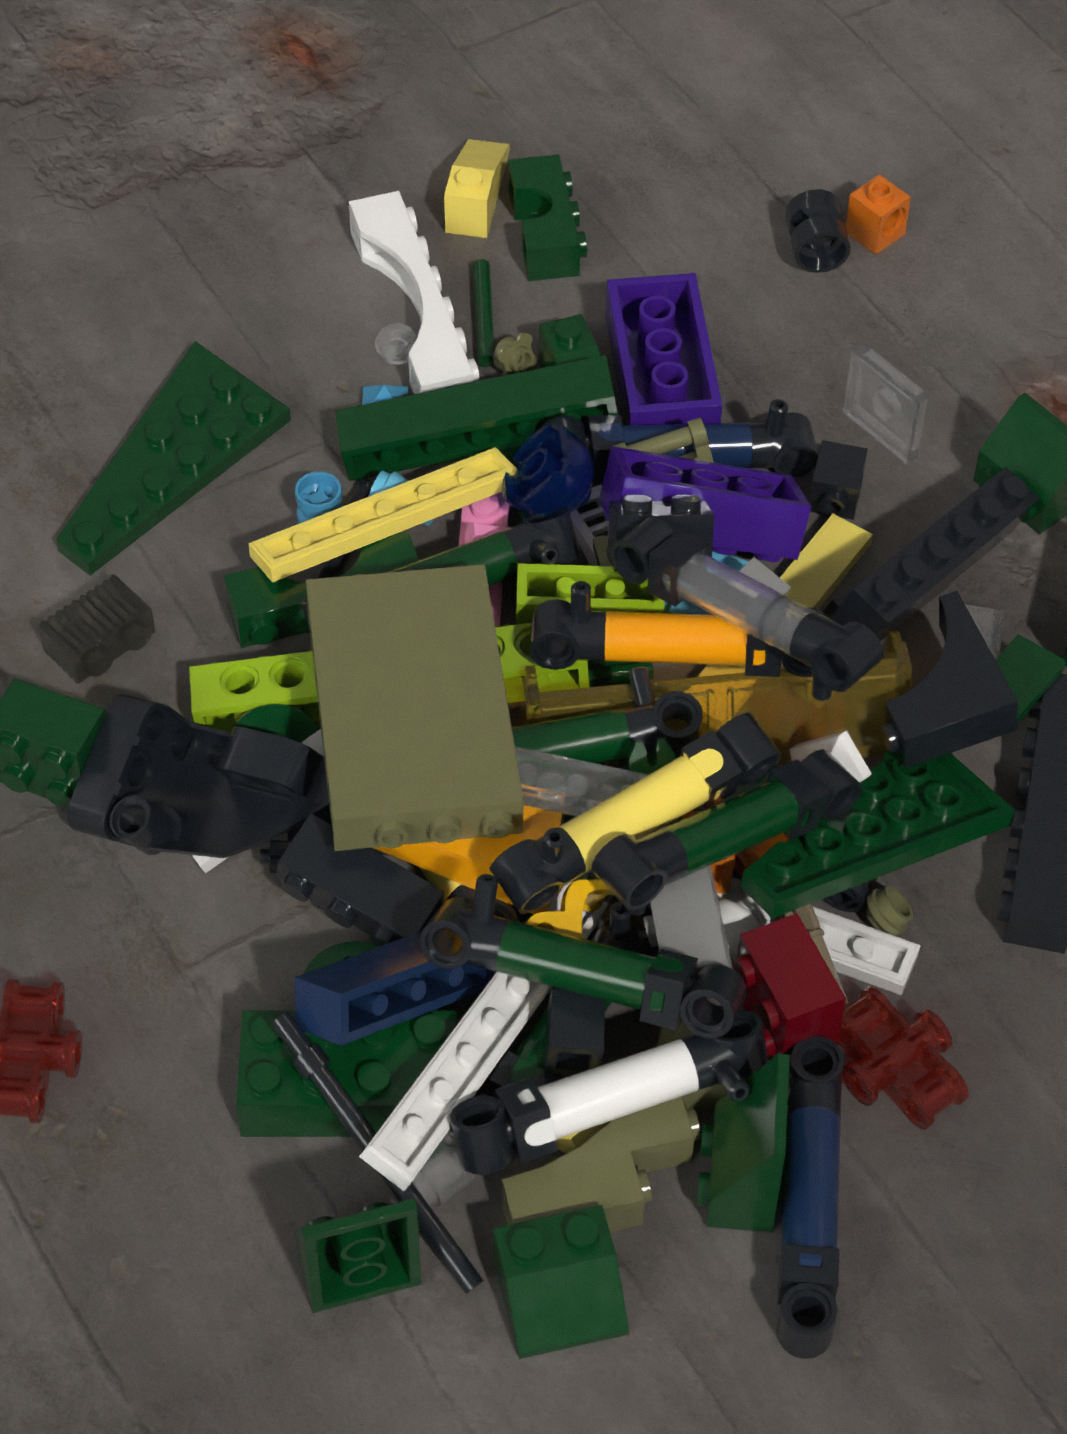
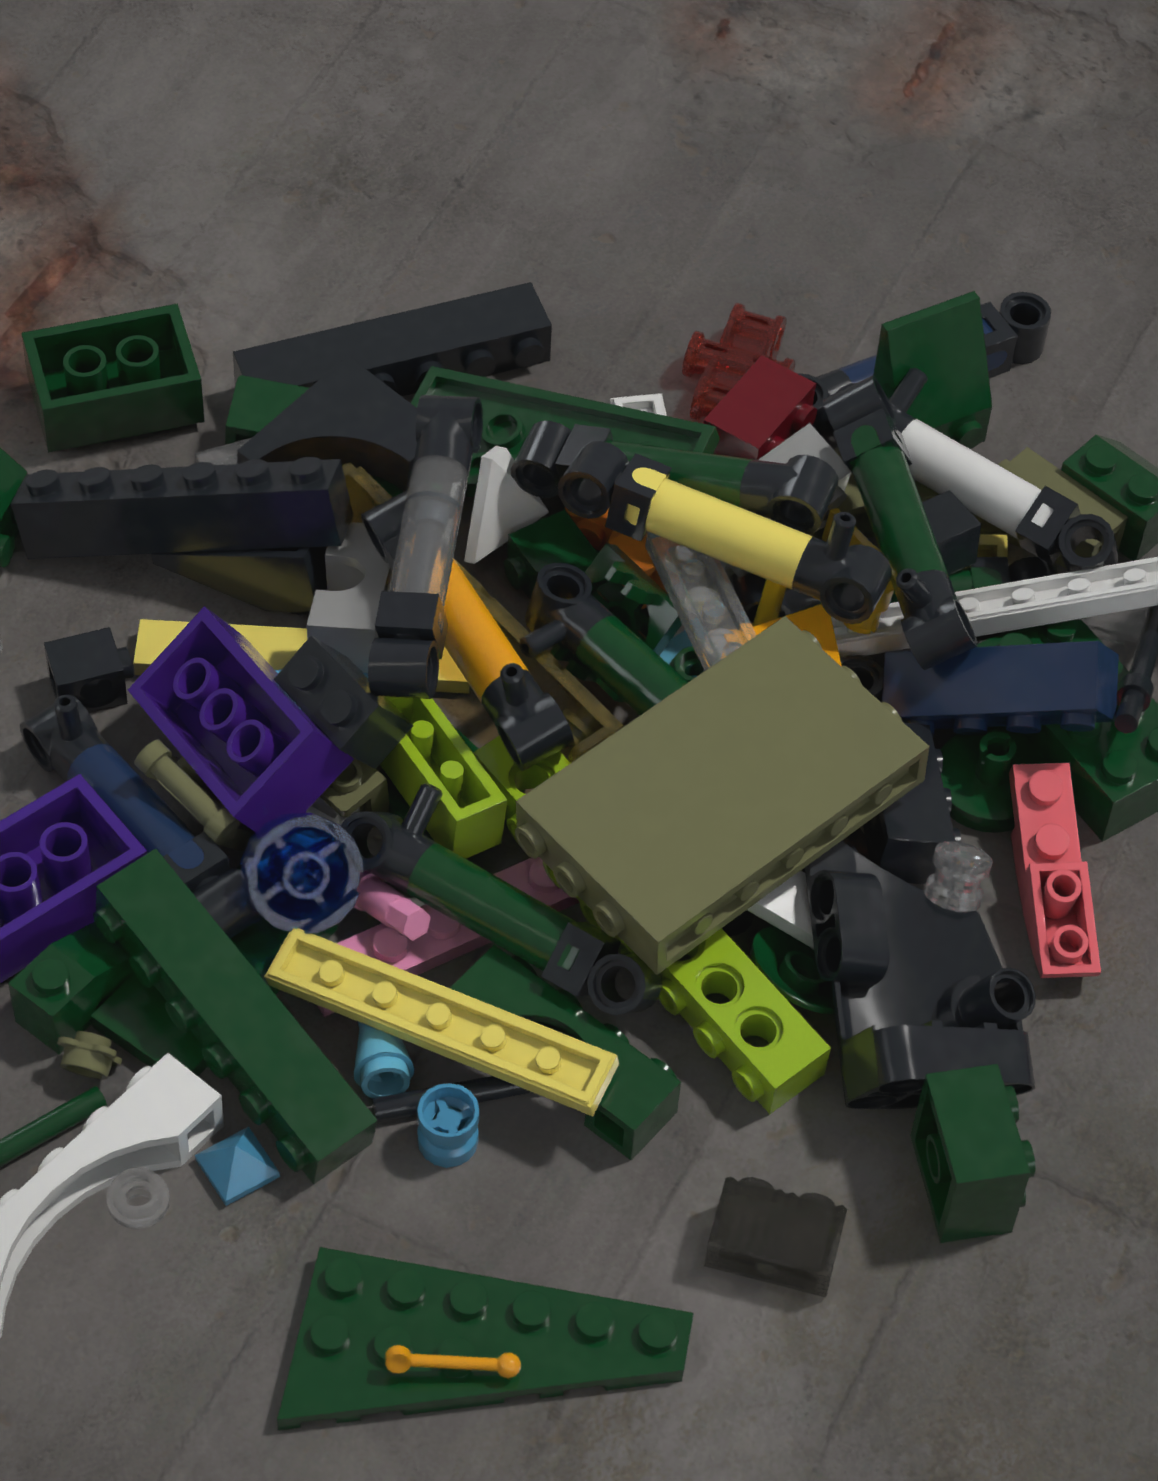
camera: 125 degrees left, 0 degrees up
(129, 445) = (400, 1359): none -> light orange hinge
(218, 956) = (1051, 872): none -> coral slope
(261, 843) = (958, 876): none -> clear wheel

